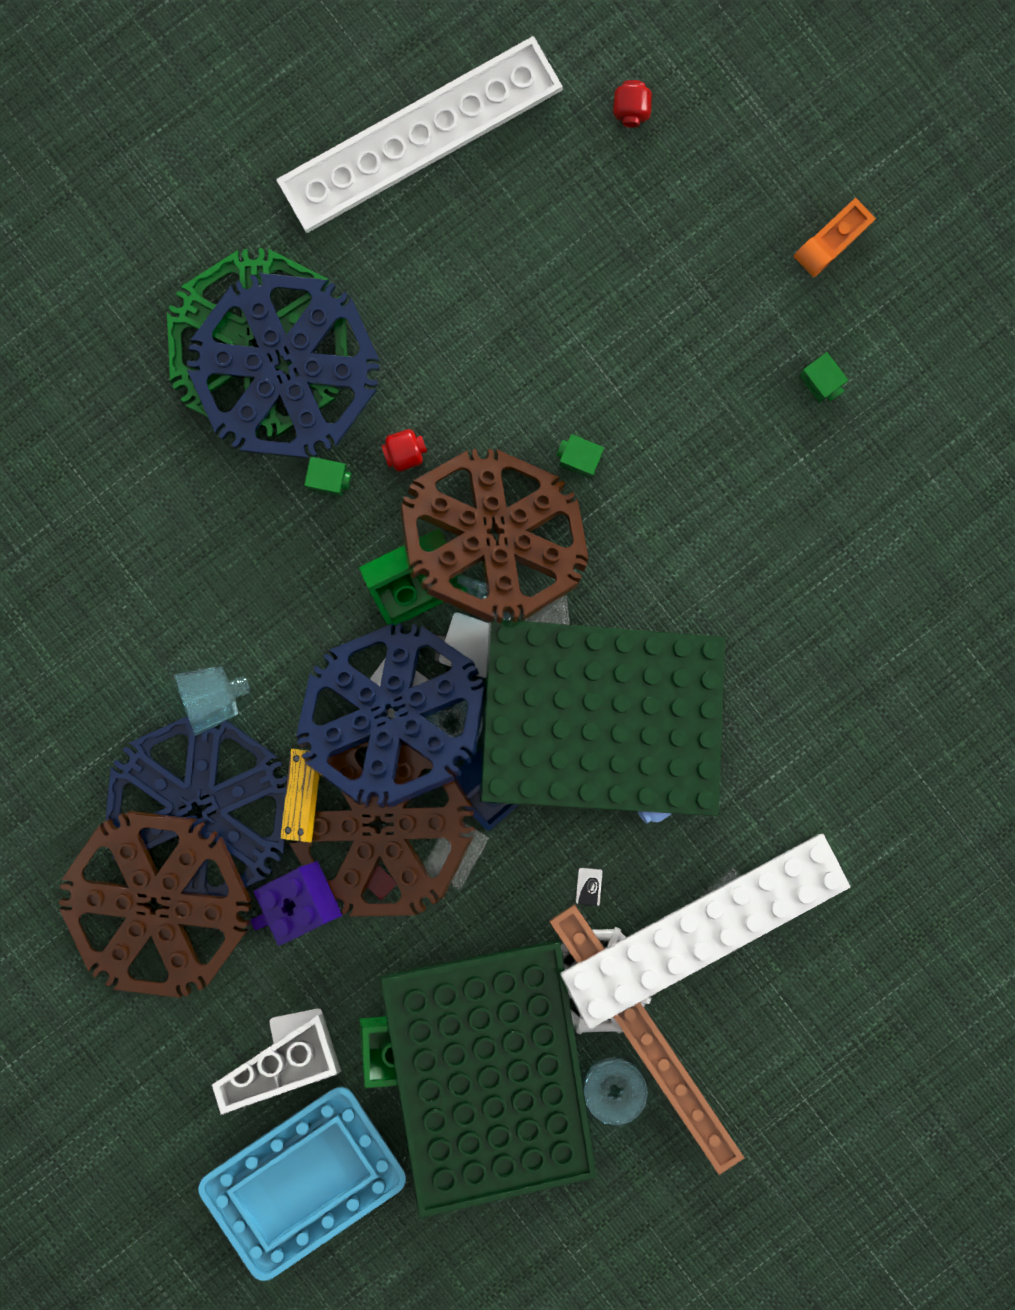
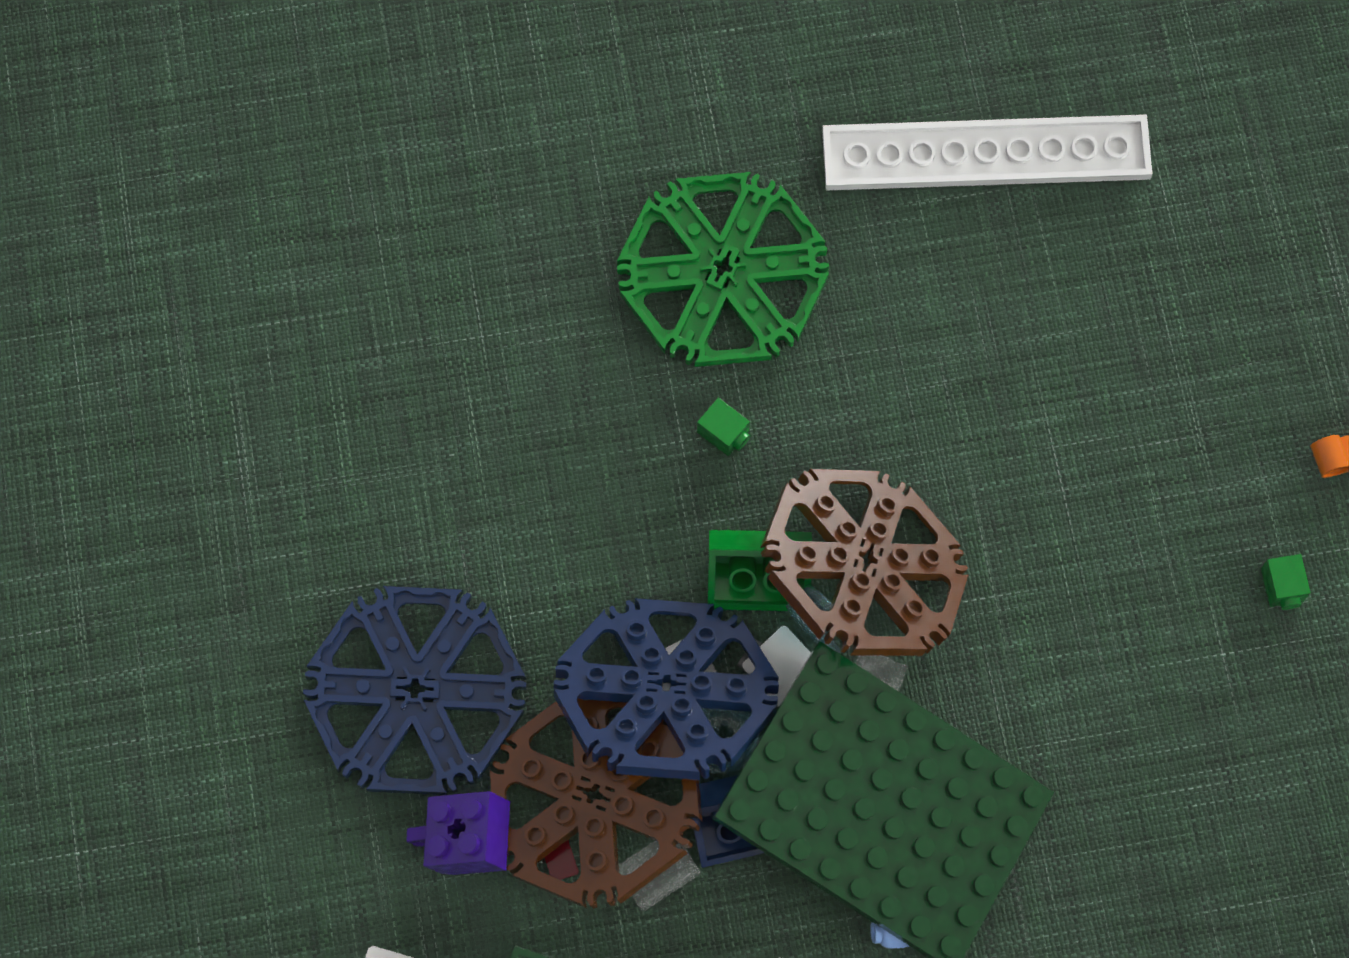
camera: 30 degrees right, 15 degrees down
(167, 886) = (315, 793): reddish brown plate -> none
(209, 697) = (490, 580): clear light blue torso -> none
(255, 364) = (736, 331): dark blue plate -> none
(299, 799) = (526, 729): yellow tile -> none
(403, 450) = (815, 440): red head -> none
(579, 455) = (992, 533): green brick -> none
(632, 103) = (1215, 223): red head -> none

